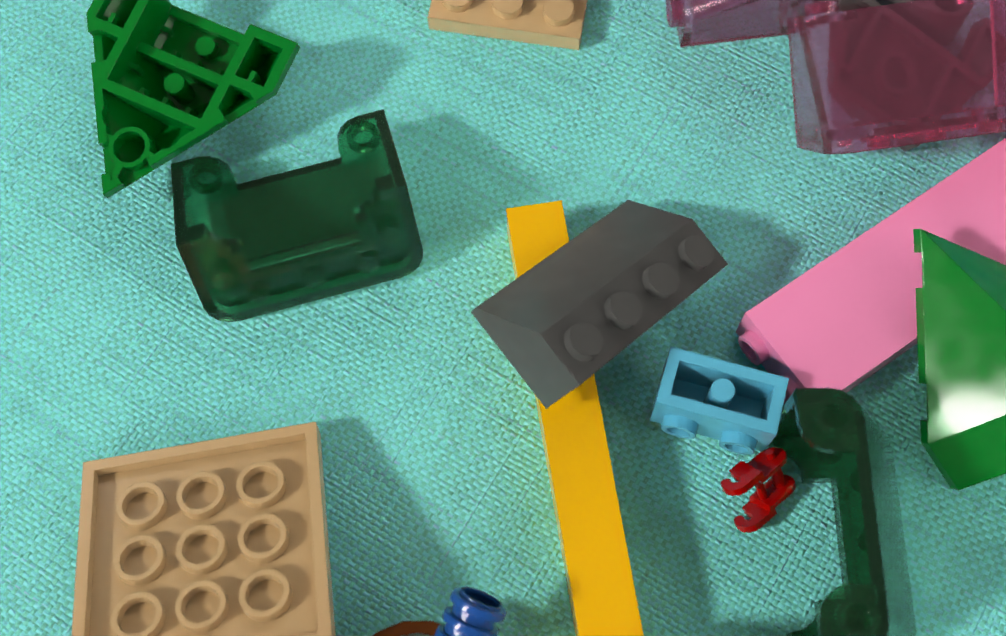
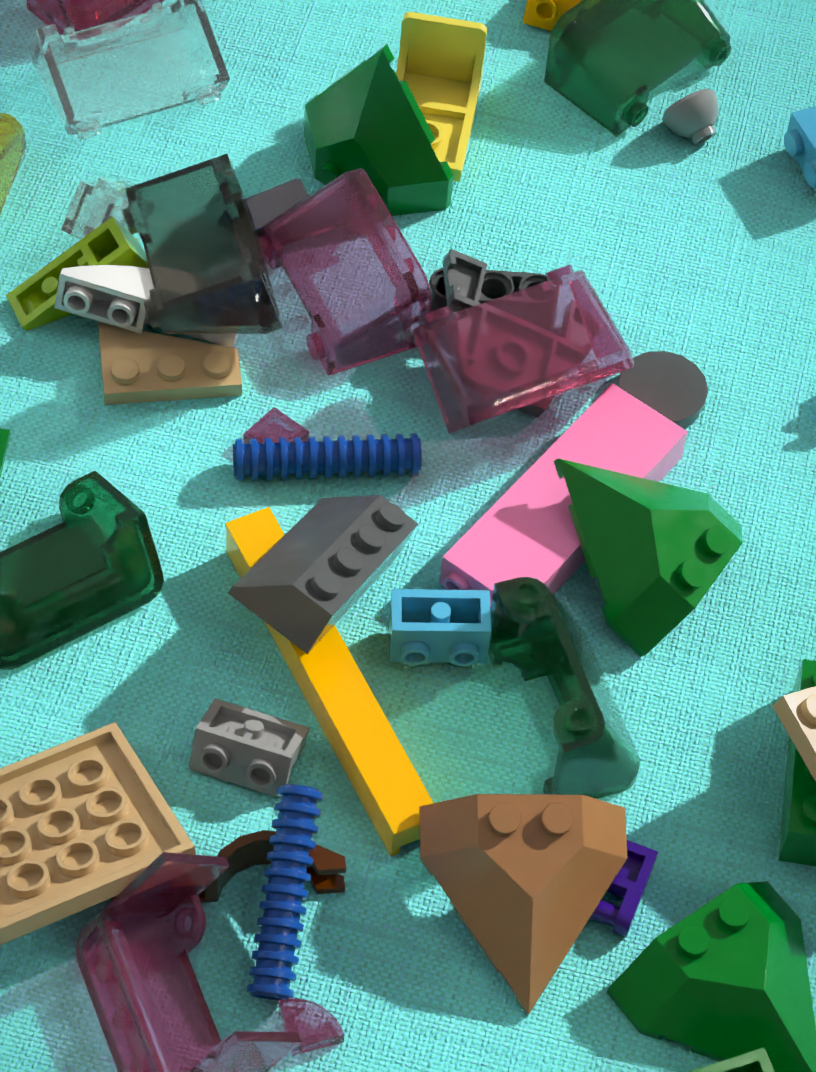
camera: 25 degrees left, 15 degrees down
(455, 490) = (246, 747): none -> light grey bracket
(601, 105) = (275, 425): none -> clear pink tile
(650, 148) = (327, 457): none -> blue piece
(768, 495) = (497, 700): red piece -> none

